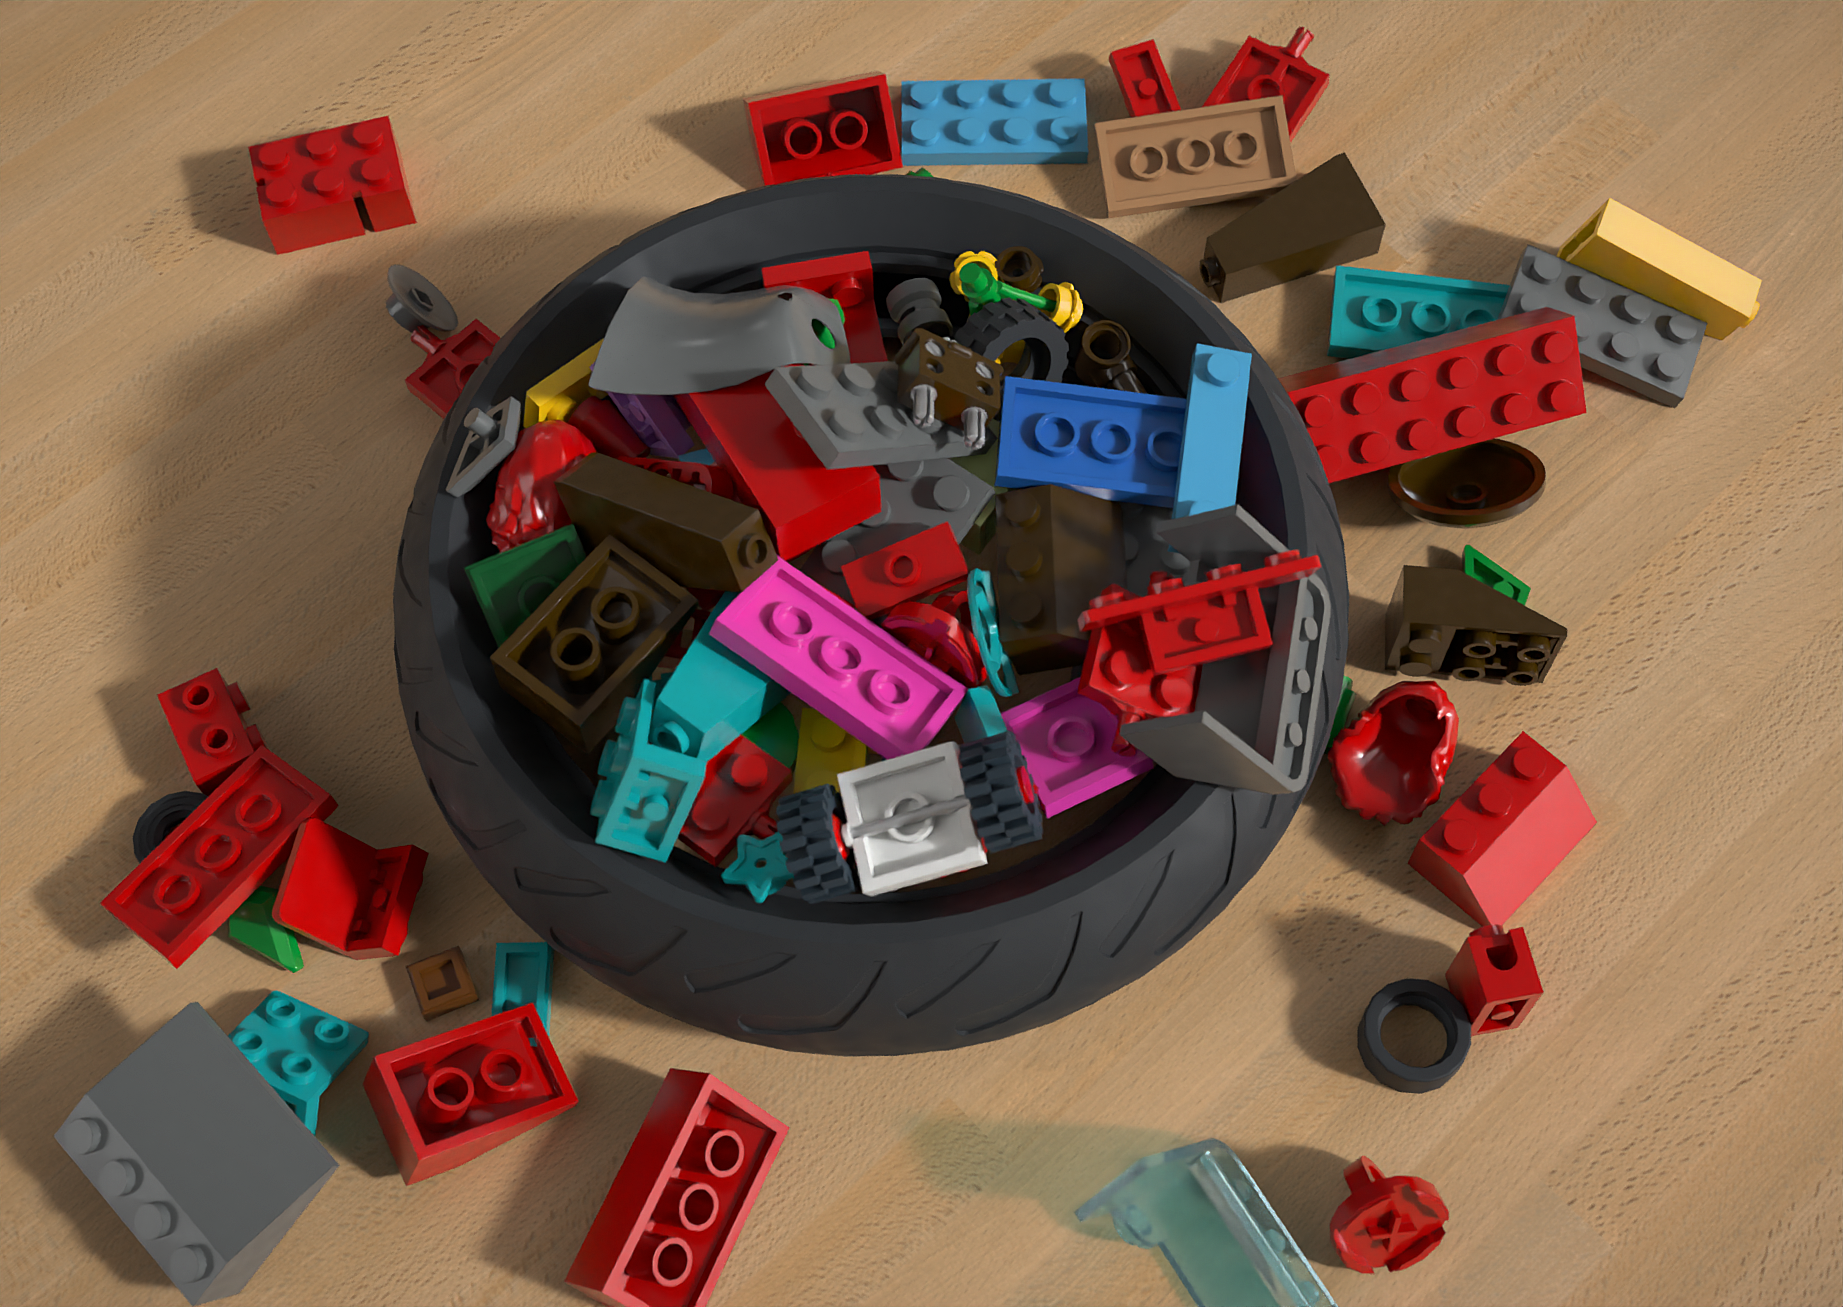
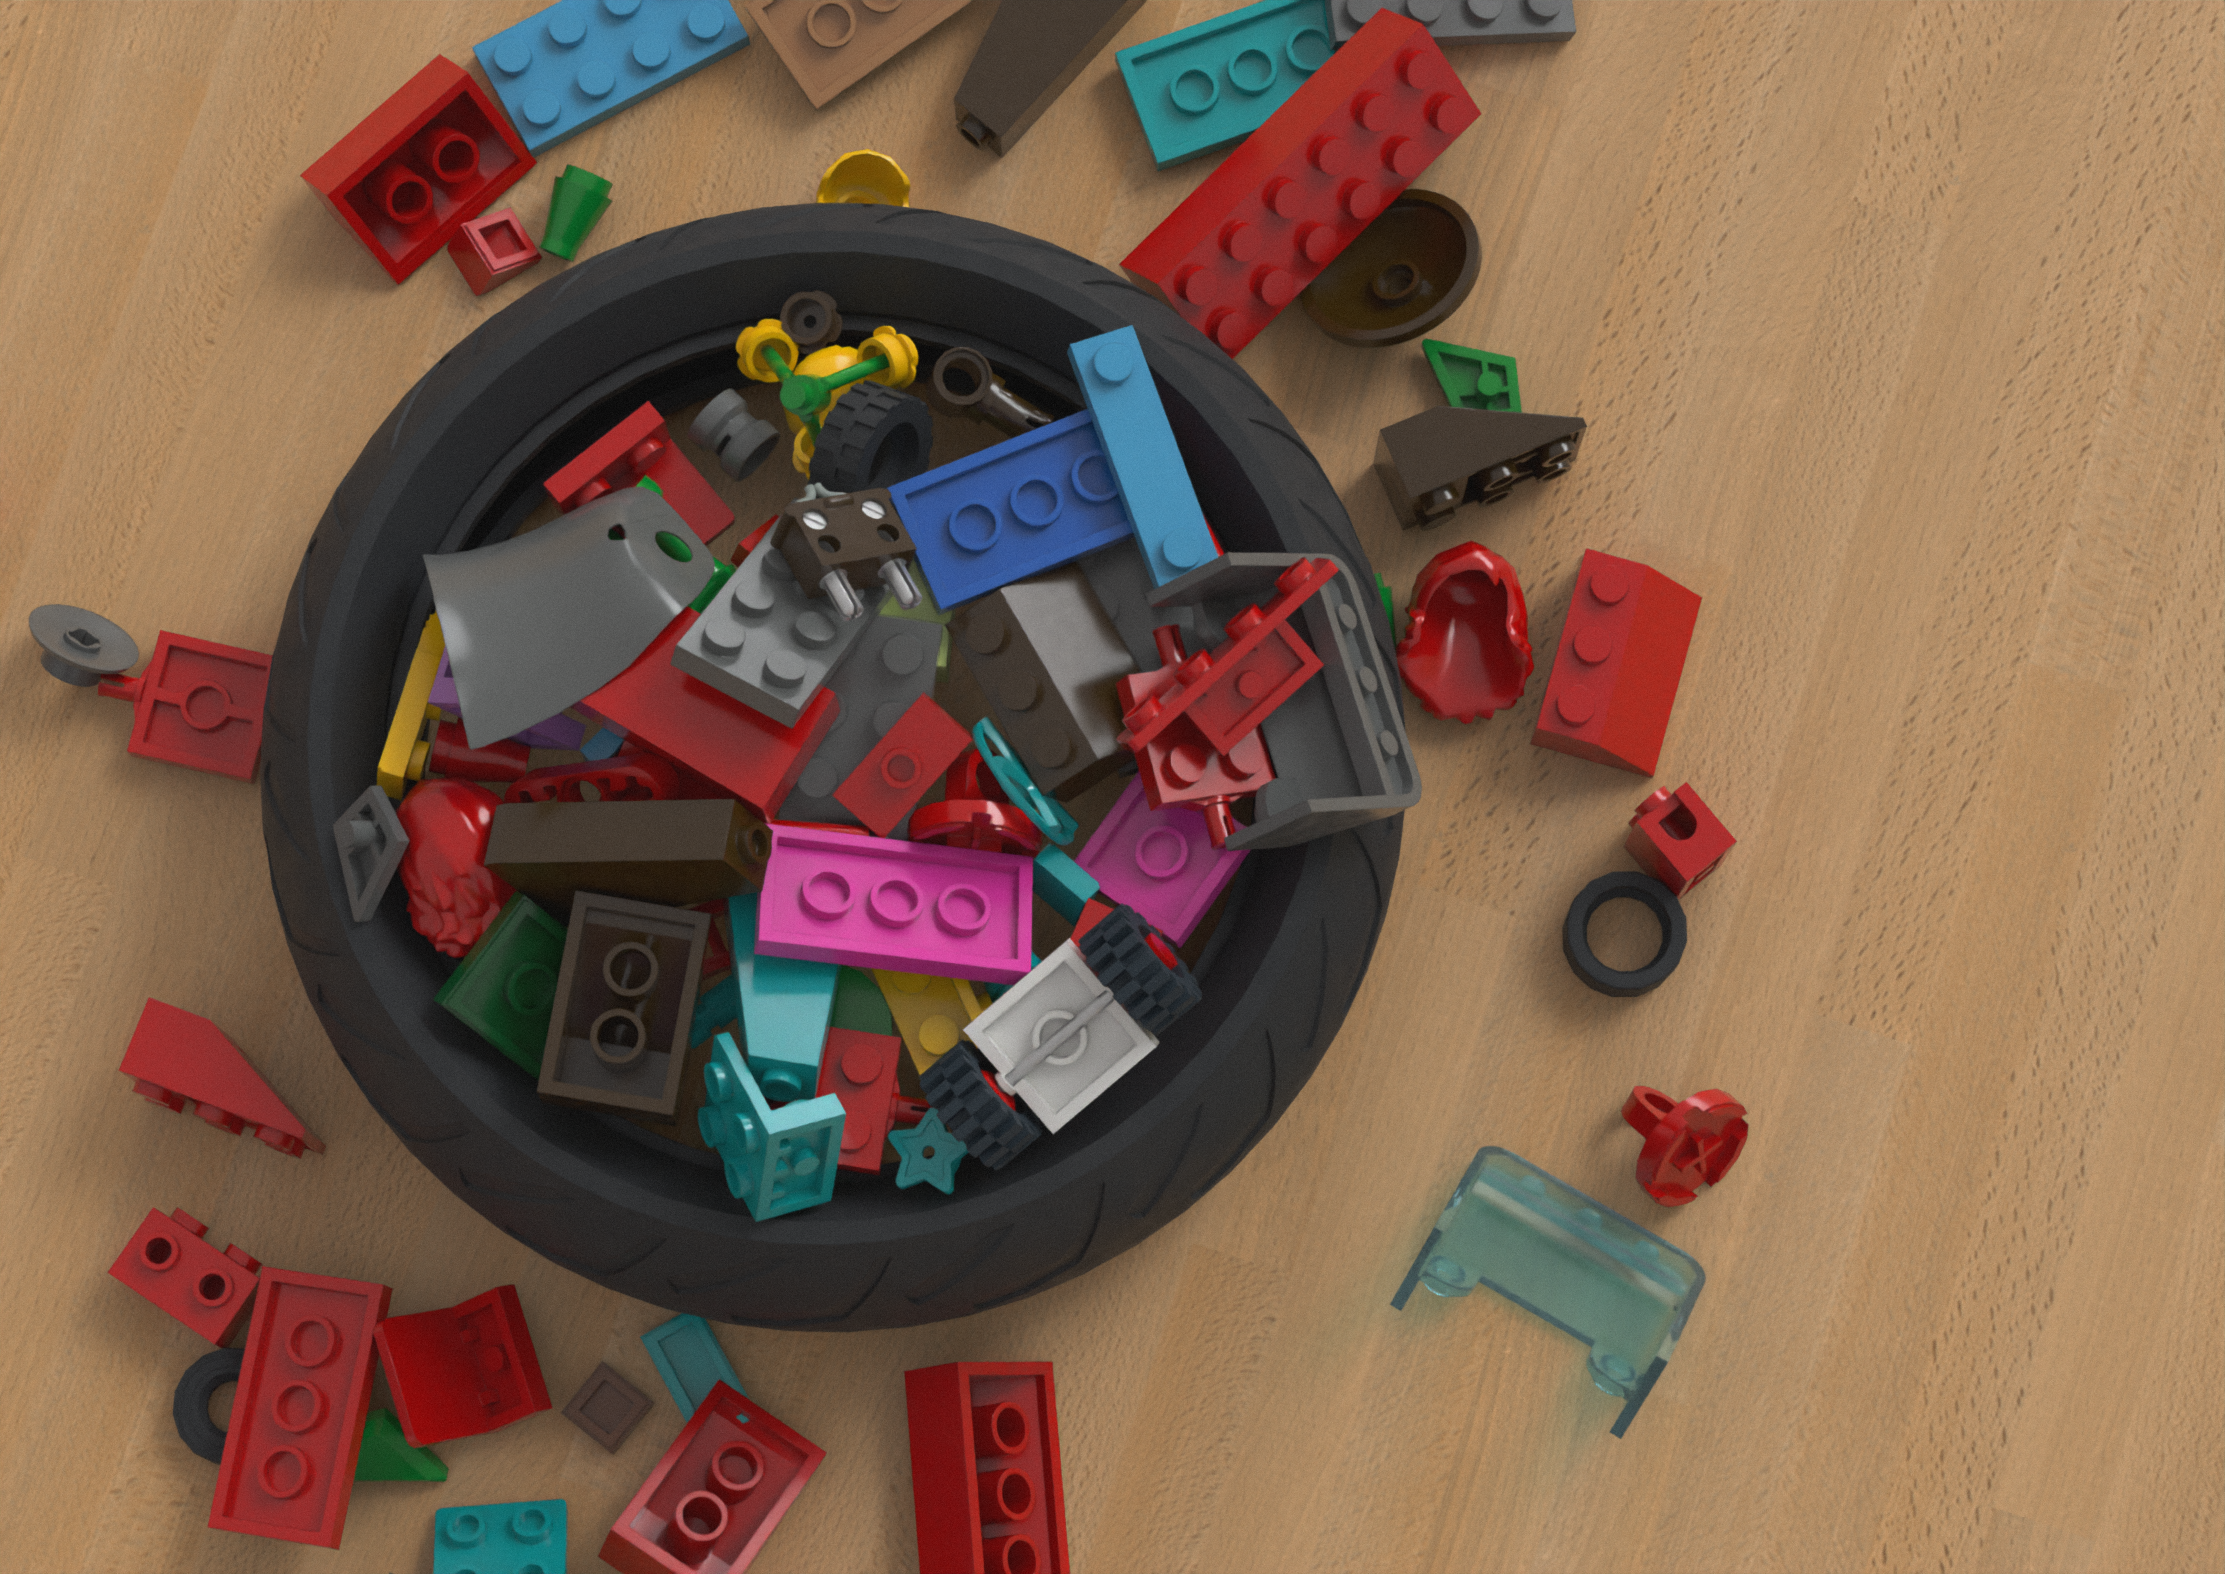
camera: 30 degrees left, 15 degrees up
(314, 600) = (193, 1062): none -> red slope

